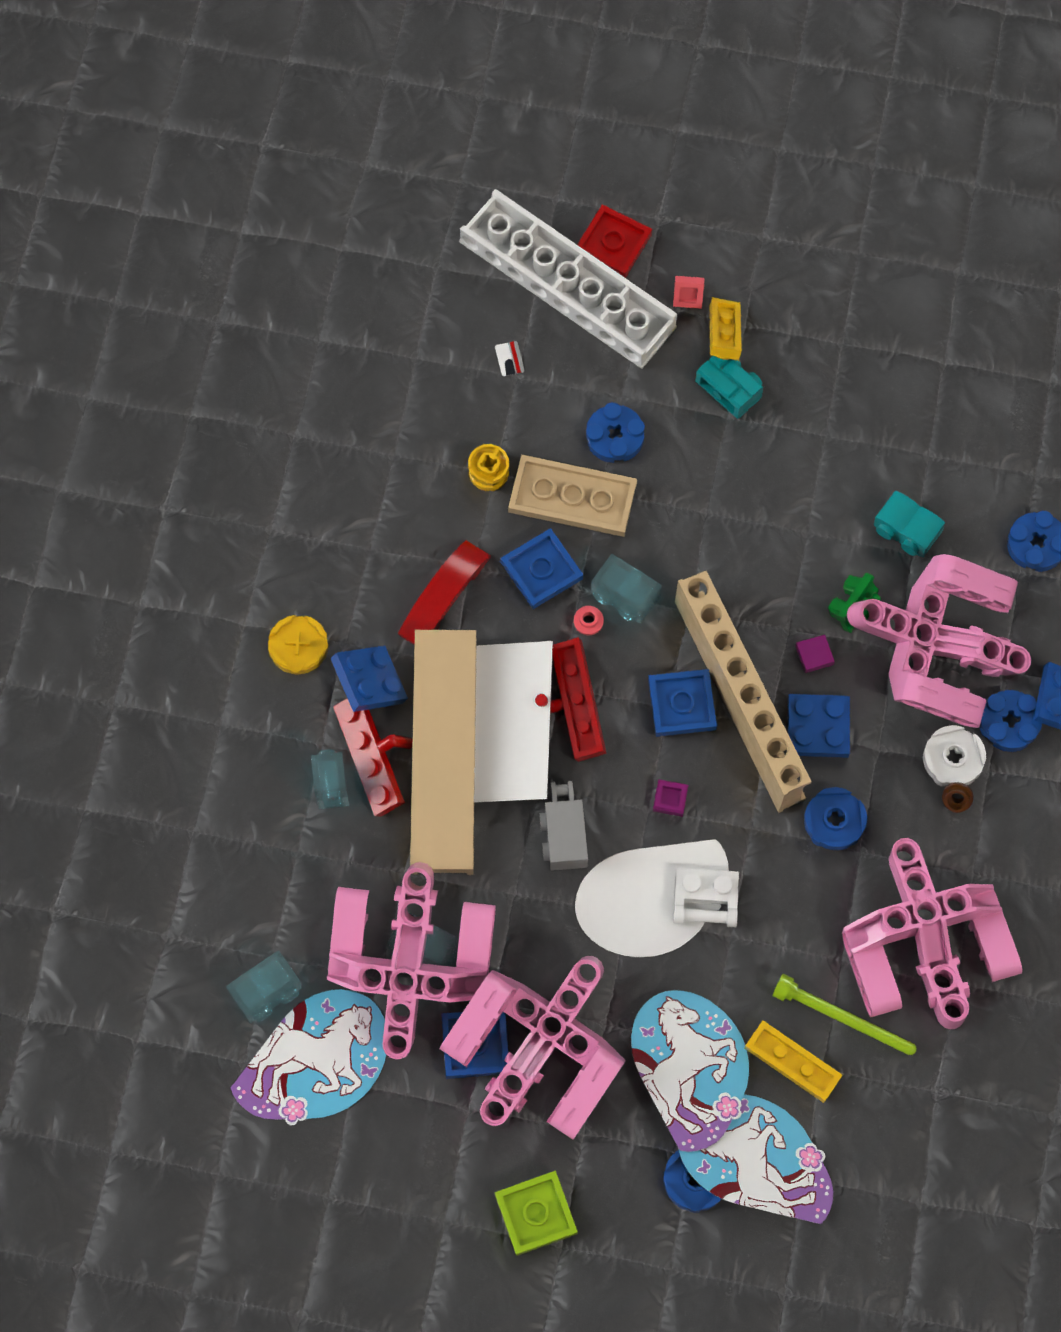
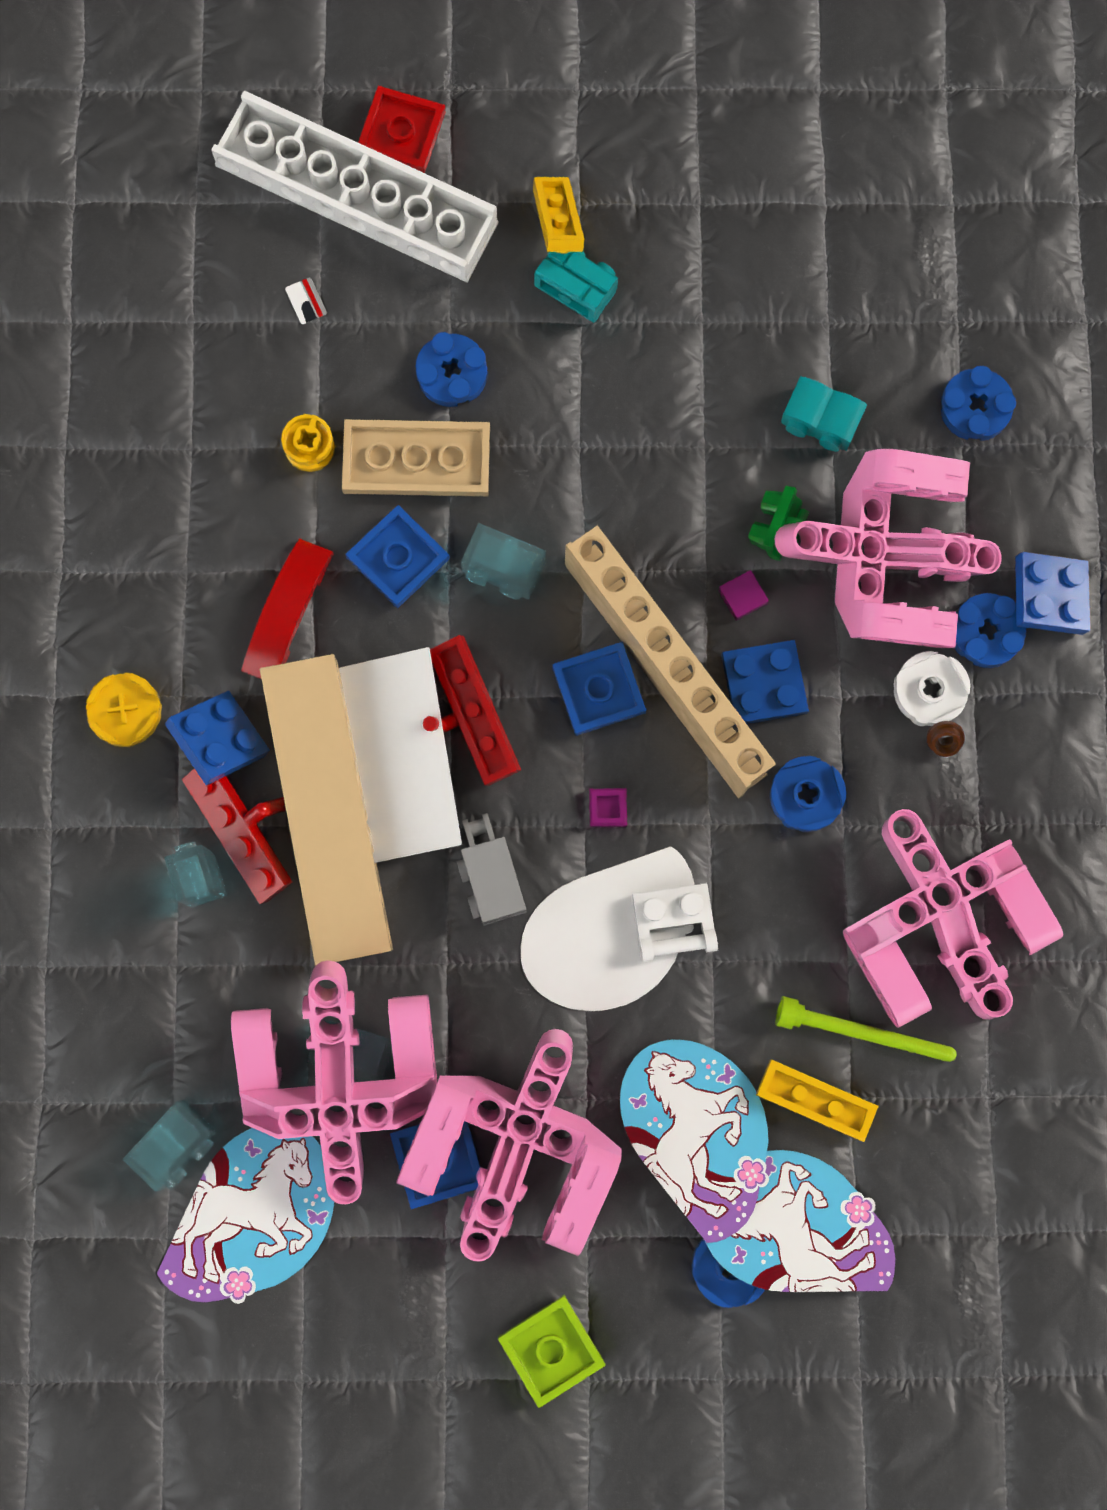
camera: 15 degrees left, 10 degrees up
(588, 628) = (466, 620): coral plate -> none
(688, 292) = (504, 175): coral tile -> none

